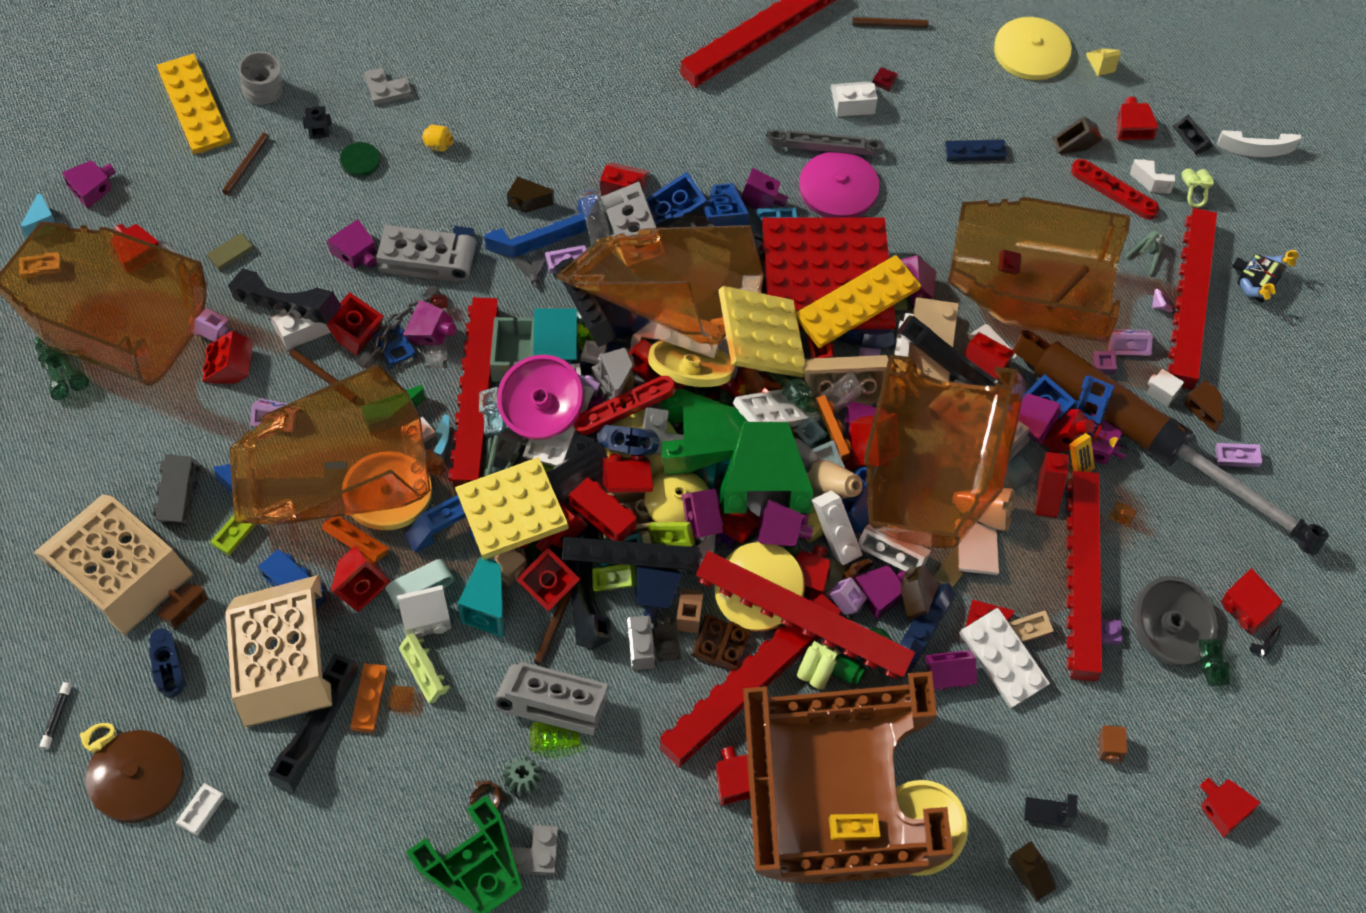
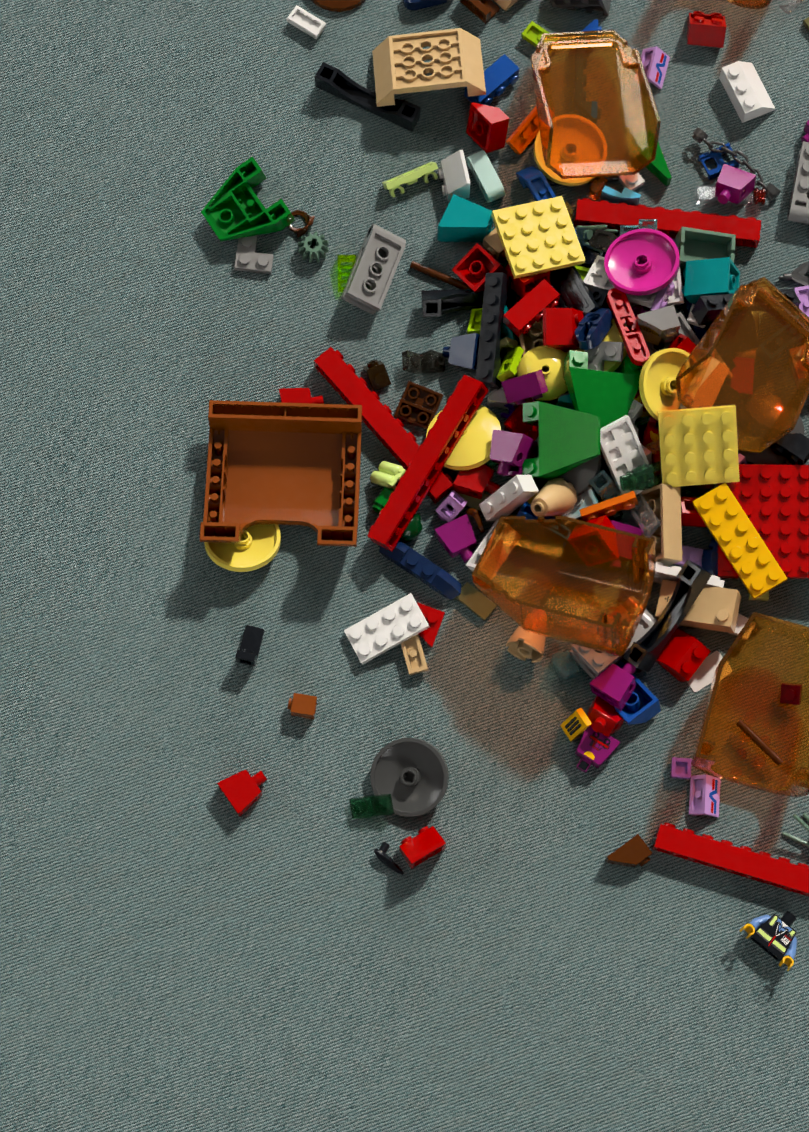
camera: 95 degrees right, 15 degrees up
(211, 325) = (744, 12): lavender brick -> none
(312, 367) = (691, 105): reddish brown piece -> none
(314, 304) = (744, 82): black arch -> none
(355, 324) = (735, 123): red slope -> none
(368, 698) = (390, 139): orange plate -> none
(401, 698) = (387, 162): clear orange plate -> none
(641, 643) = (420, 340): light grey brick -> none
(686, 690) = (377, 374): none -> dark brown bracket
(689, 610) = (444, 378): medium nougat slope -> none
(854, 827) = (245, 485): yellow plate -> none
(918, 591) = (448, 562): dark brown slope -> none
(924, 275) = (772, 603): magenta torso -> none
(952, 669) = (378, 582): magenta brick -> none
(979, 551) = (490, 624): piece -> none
(1032, 871) = (200, 623): dark brown slope -> none
(1051, 484) = (546, 691): red slope -> none
(1084, 577) = (463, 710): red brick -> none
(1087, 396) = (631, 733): blue piece -> none
(1111, 632) = (408, 724): medium lavender plate -> none
(1122, 514) = (520, 755): clear orange plate -> none
(1150, 428) = (608, 785): piece -> none
(1161, 301) = (748, 836): lavender slope -> none
(1164, 387) = (650, 817): white brick -> none
(1238, 455) = (576, 872): lavender plate -> none

